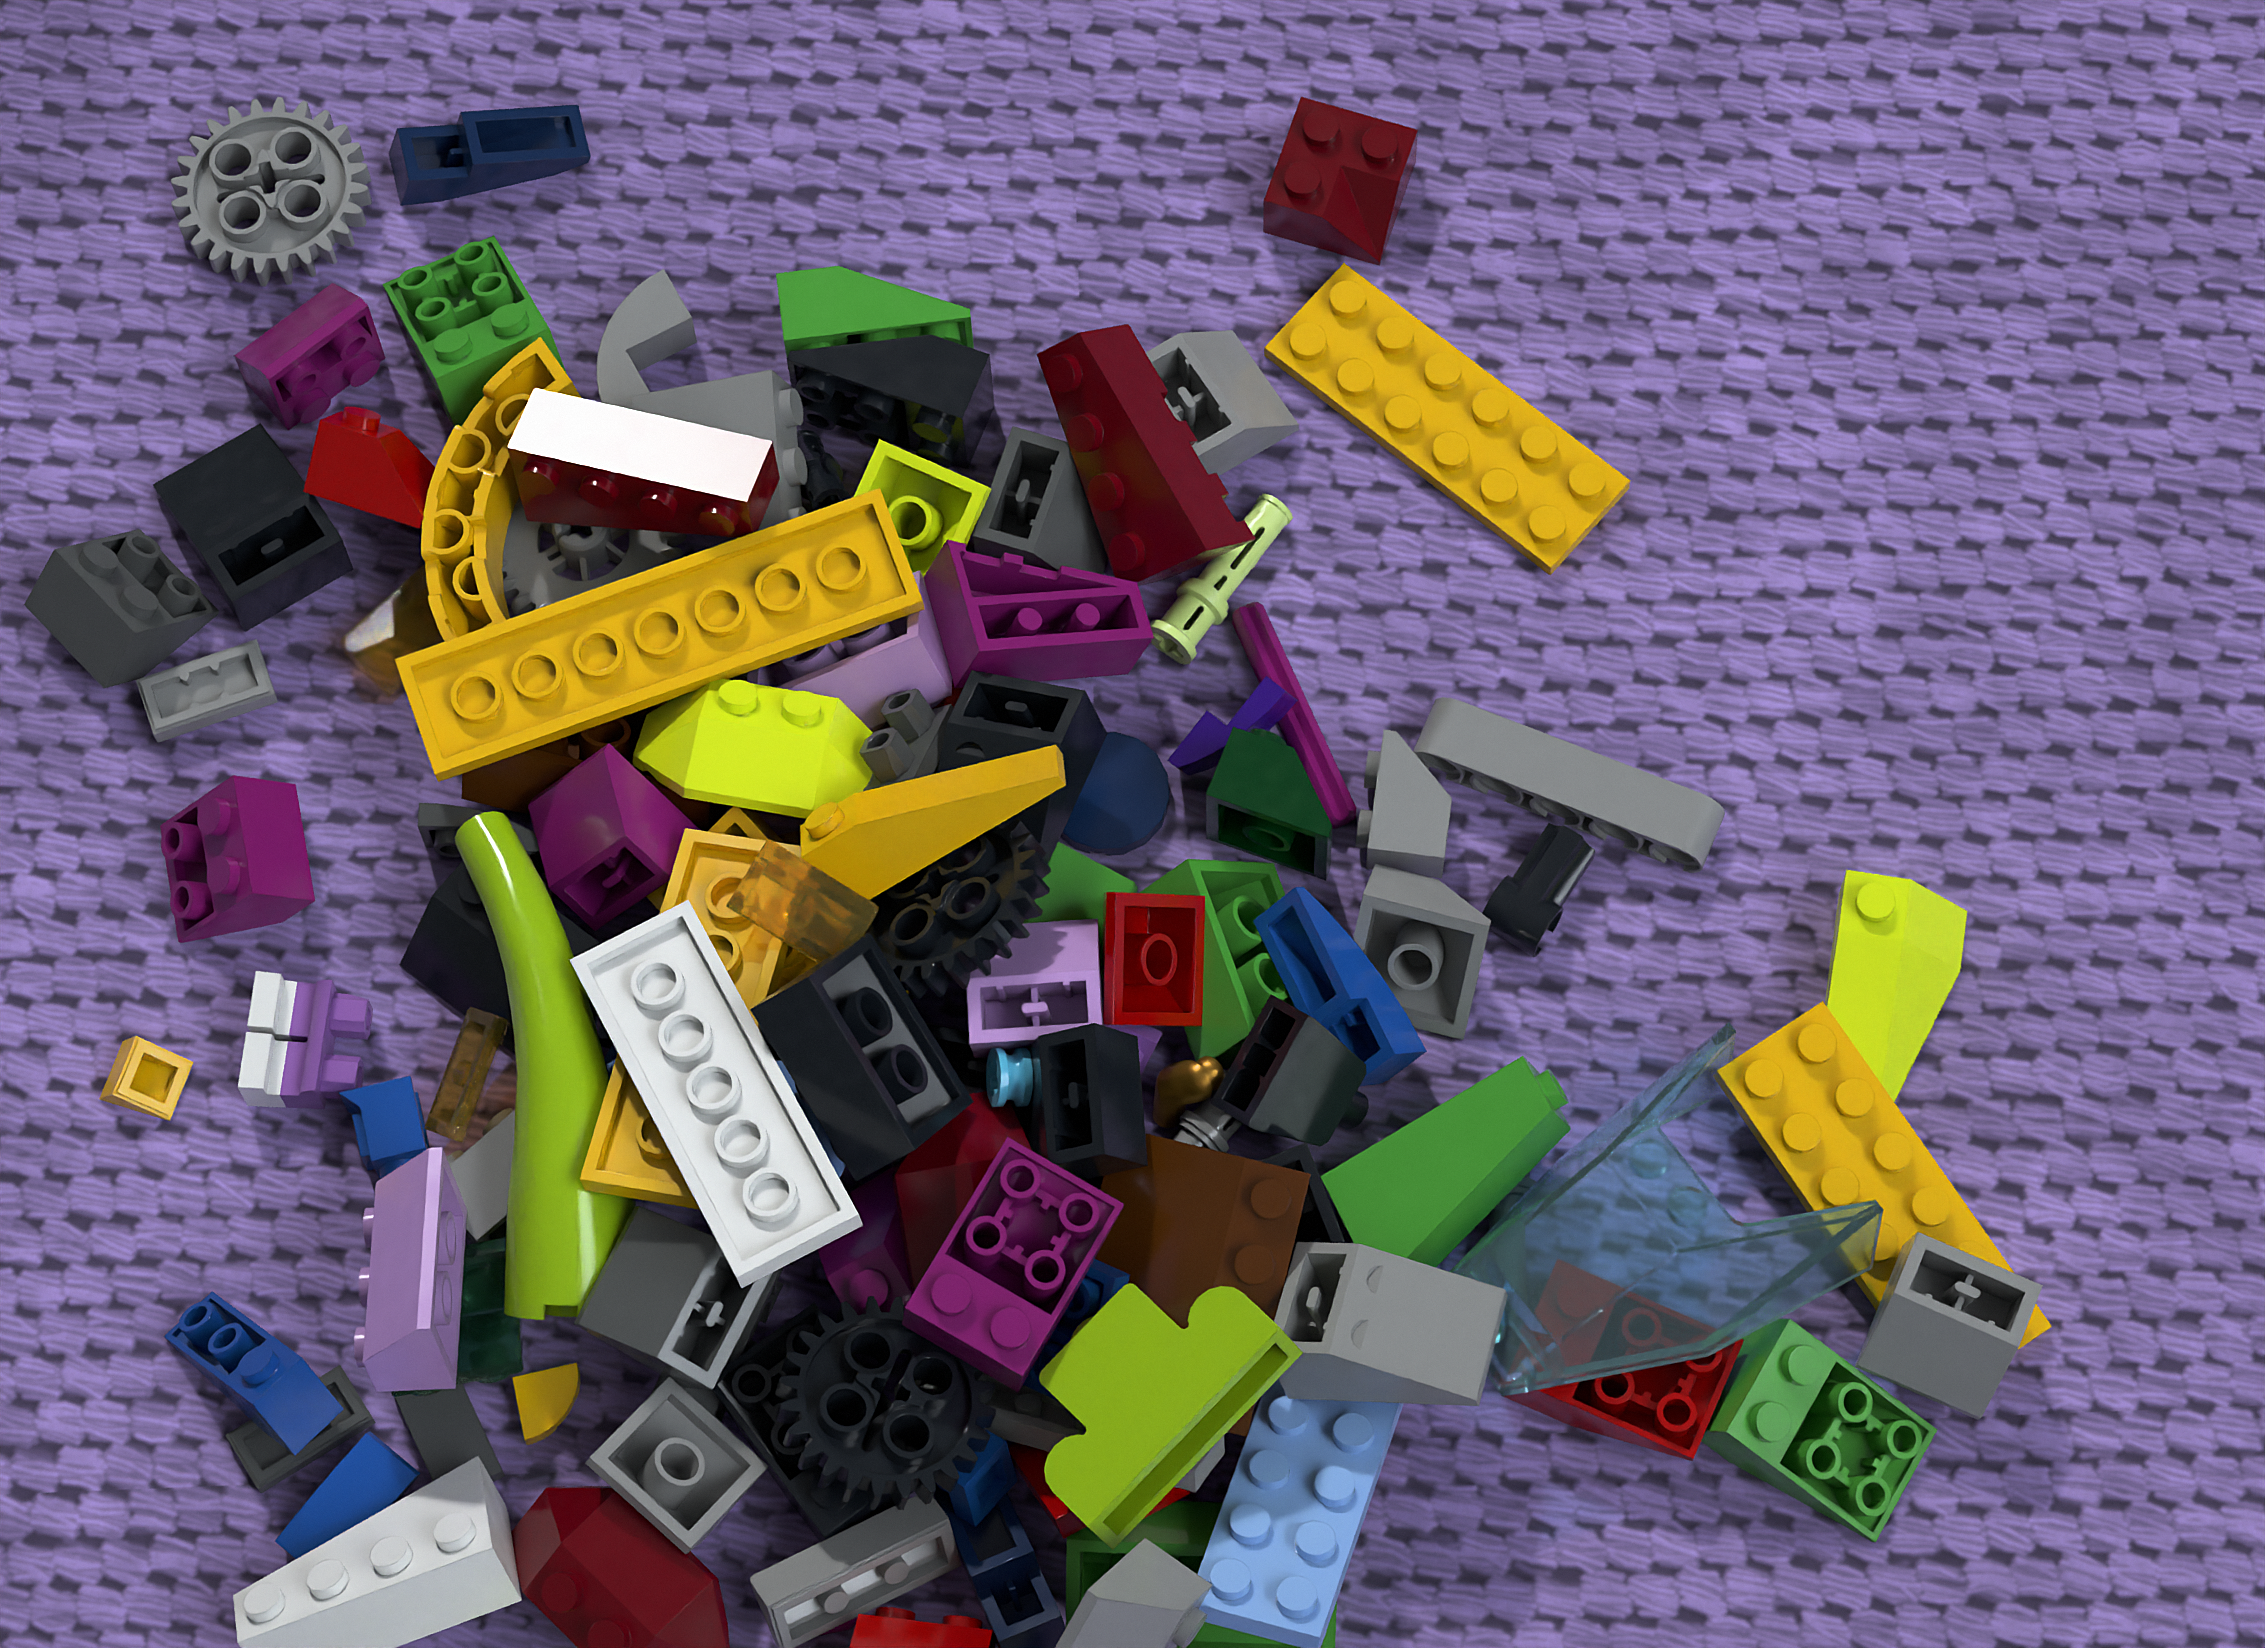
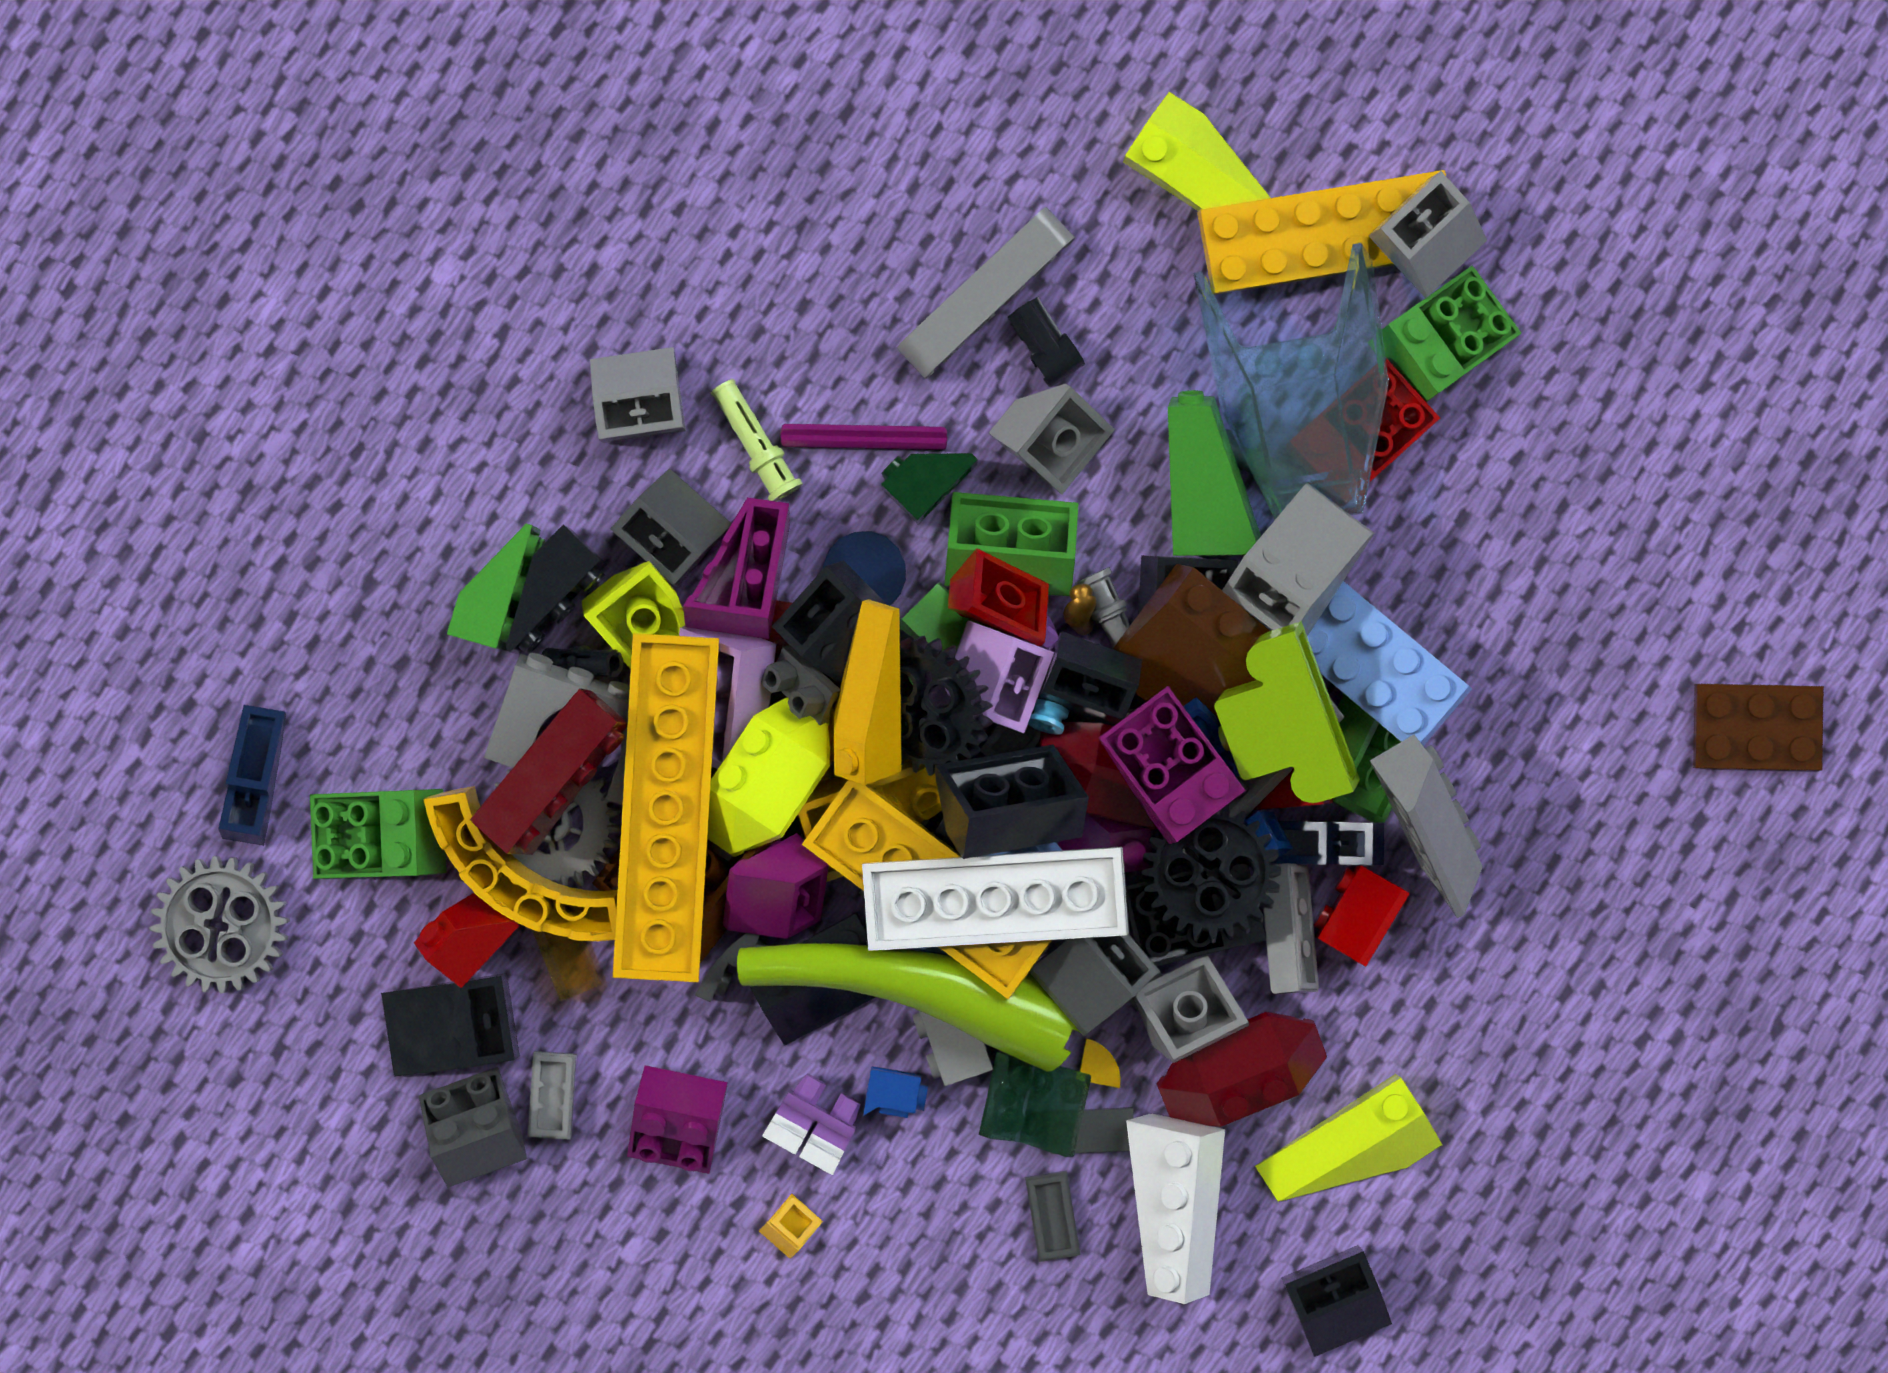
camera: 65 degrees left, 20 degrees up
(255, 1372) = (1012, 1232): blue slope -> none
(313, 356) = (352, 944): magenta slope -> none
(357, 1488) = (1113, 1204): blue slope -> none
(413, 1277) = (1013, 1120): lavender slope -> none
(467, 1074) = (883, 1033): clear yellow slope -> none
(640, 333) = (426, 728): light grey brick -> none
(801, 904) = (894, 797): clear yellow slope -> none
(1136, 459) = (668, 462): dark red wedge -> none
(1209, 736) = (865, 488): dark purple slope -> none
(1293, 1078) = (1110, 547): black torso -> none
(1338, 984) = (1060, 492): blue slope -> none
(1340, 181) = (519, 245): dark red slope -> none
(1408, 811) = (961, 396): light grey slope -> none
(1447, 418) = (707, 253): yellow plate -> none

